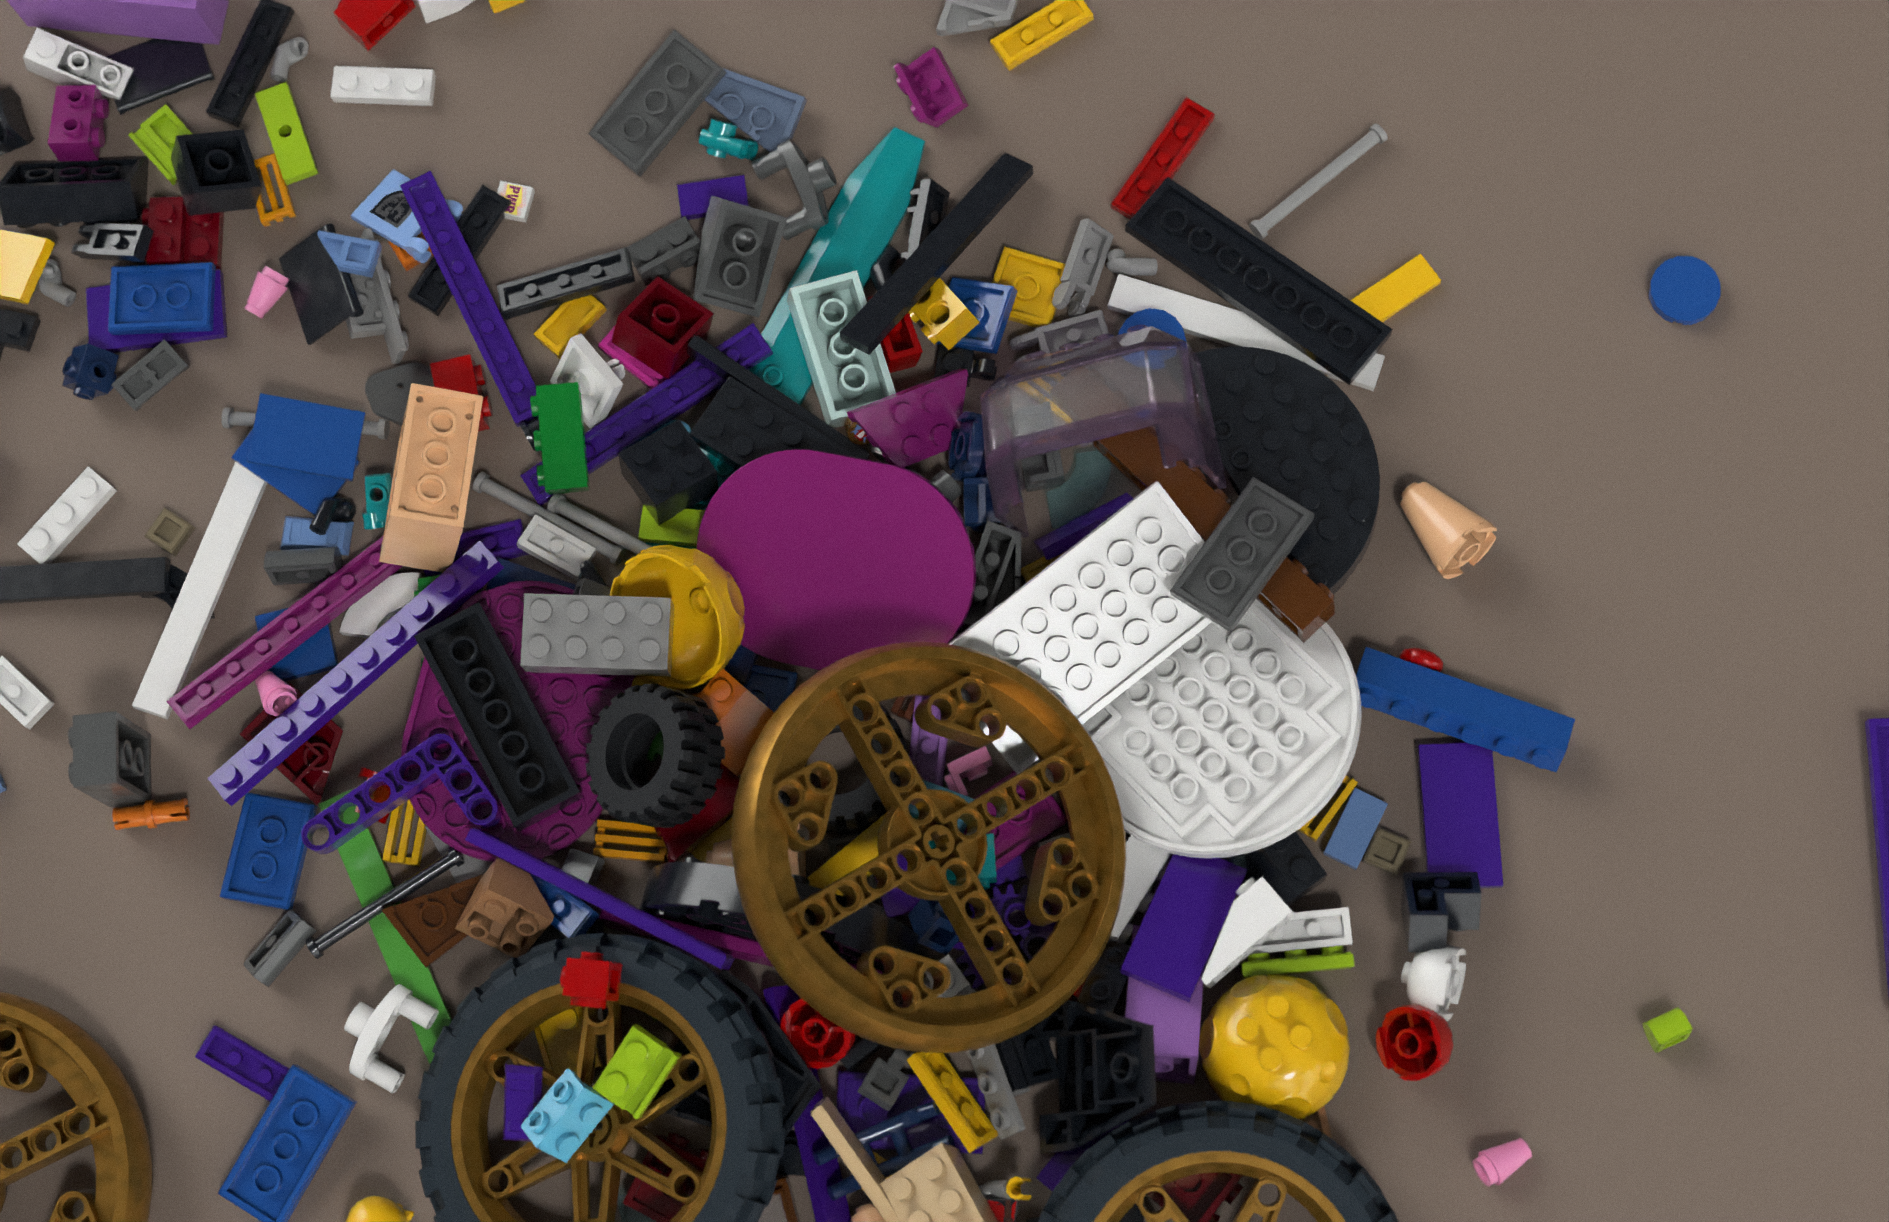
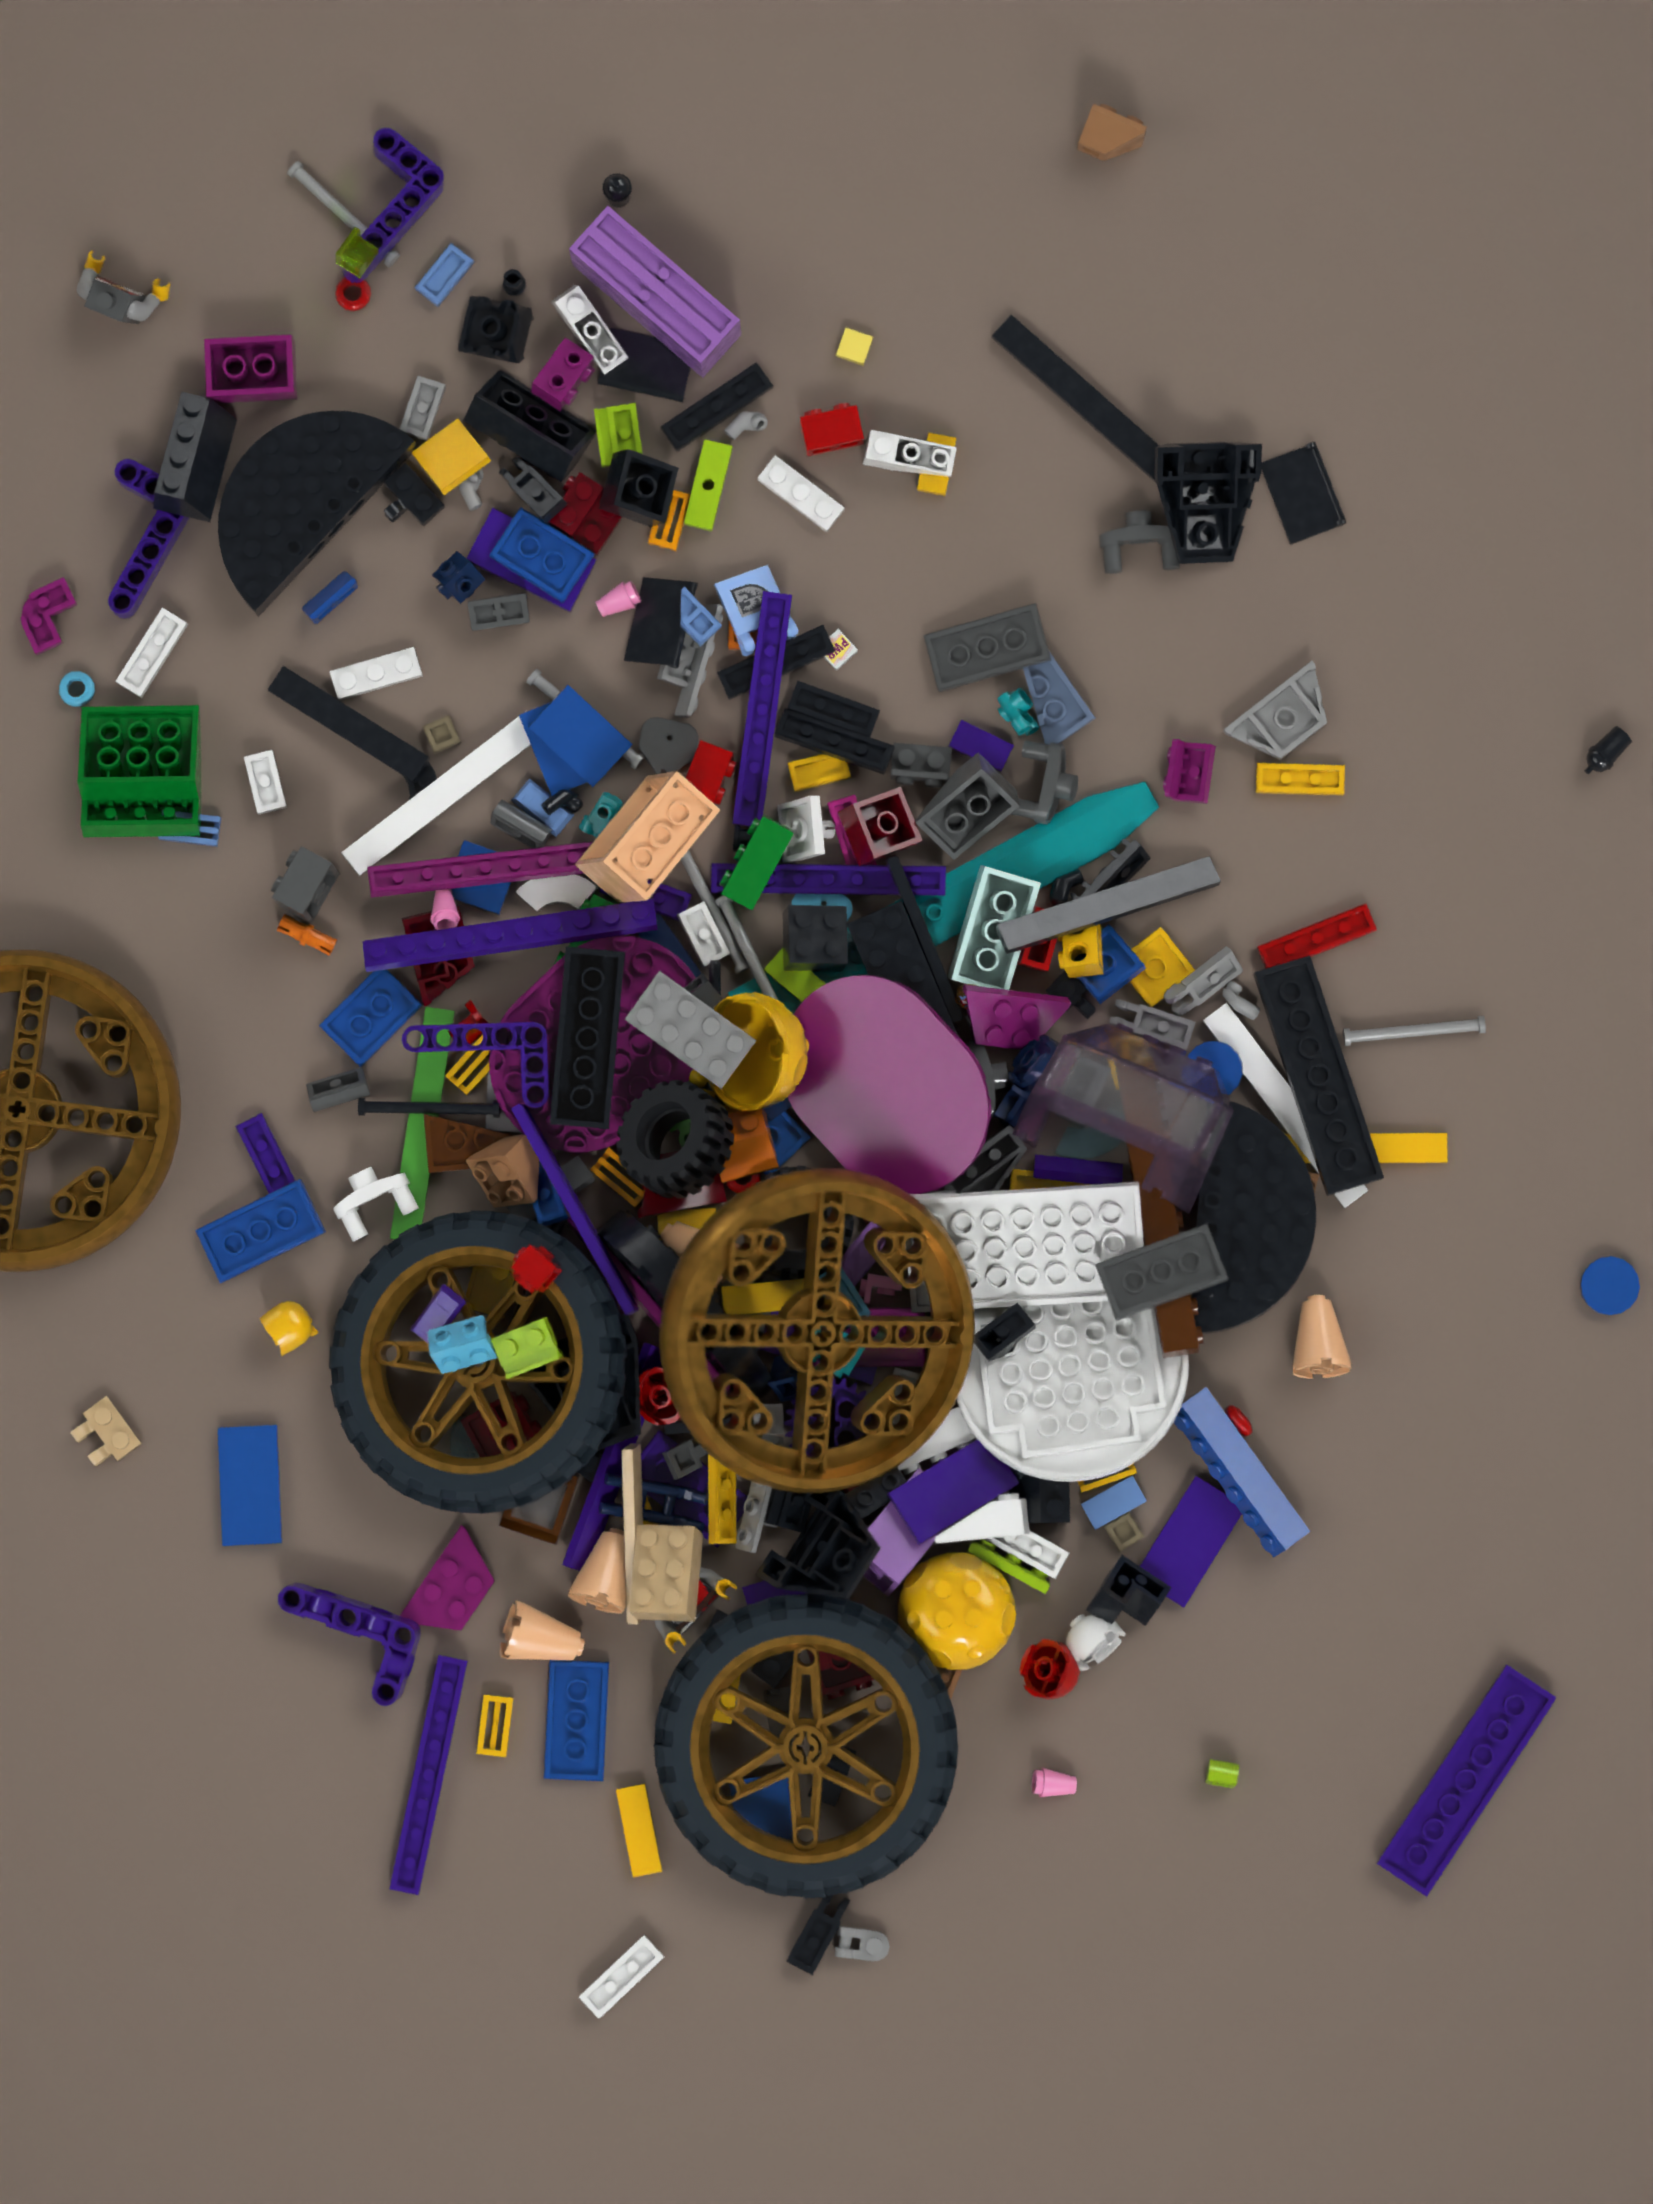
camera: 25 degrees right, 10 degrees up
(544, 254) = (833, 709): none -> black plate
(1125, 723) = (1008, 1328): none -> black slope

